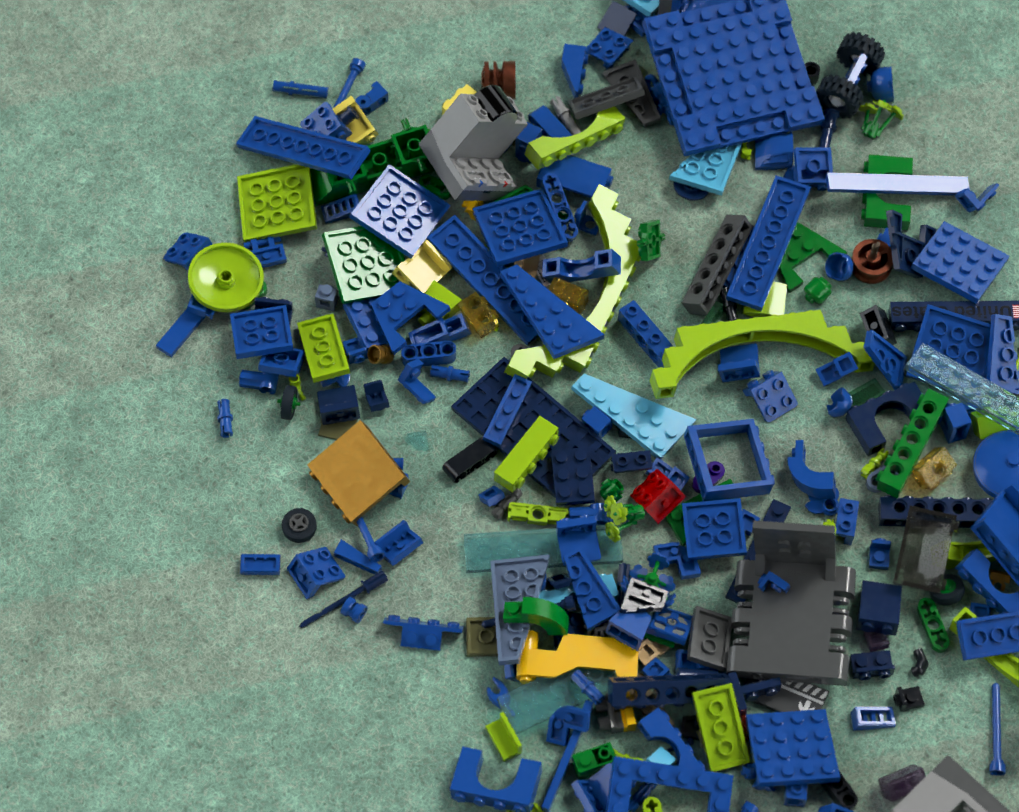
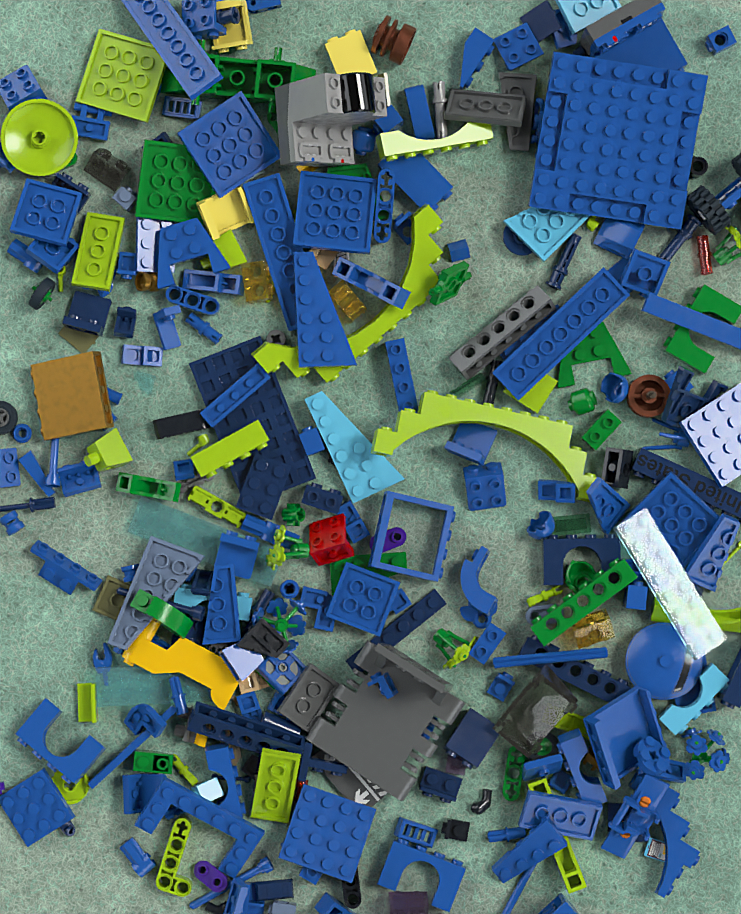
camera: 25 degrees right, 25 degrees up
(297, 283) = (107, 168): none -> clear smoke bracket
(325, 525) = (17, 437): none -> blue plate
(405, 420) = (142, 355): none -> slope
(416, 508) = (108, 452): none -> lime torso
(477, 521) = (148, 487): none -> green arch
(486, 603) = (129, 572): none -> blue wheel
(494, 465) = (203, 440): none -> lime hand
(515, 167) = (363, 140): none -> blue head
(642, 550) = (289, 584): none -> blue cone
(643, 216) = (458, 250): none -> blue slope
(739, 197) = (560, 270): none -> dark blue pin
(748, 771) = (281, 830): blue plate -> none
(846, 305) = (601, 430): none -> green brick
(855, 136) = (704, 254): none -> clear red pin
(893, 426) = (578, 573): none -> green hair
(915, 500) = (550, 657): none -> blue axle
(918, 284) = (678, 438): none -> blue plant
(922, 736) = (403, 854): none -> blue arch
(956, 598) = (542, 767): none -> blue plate
(958, 681) = (506, 834): none -> blue axle
(990, 675) = (534, 848): none -> blue wing

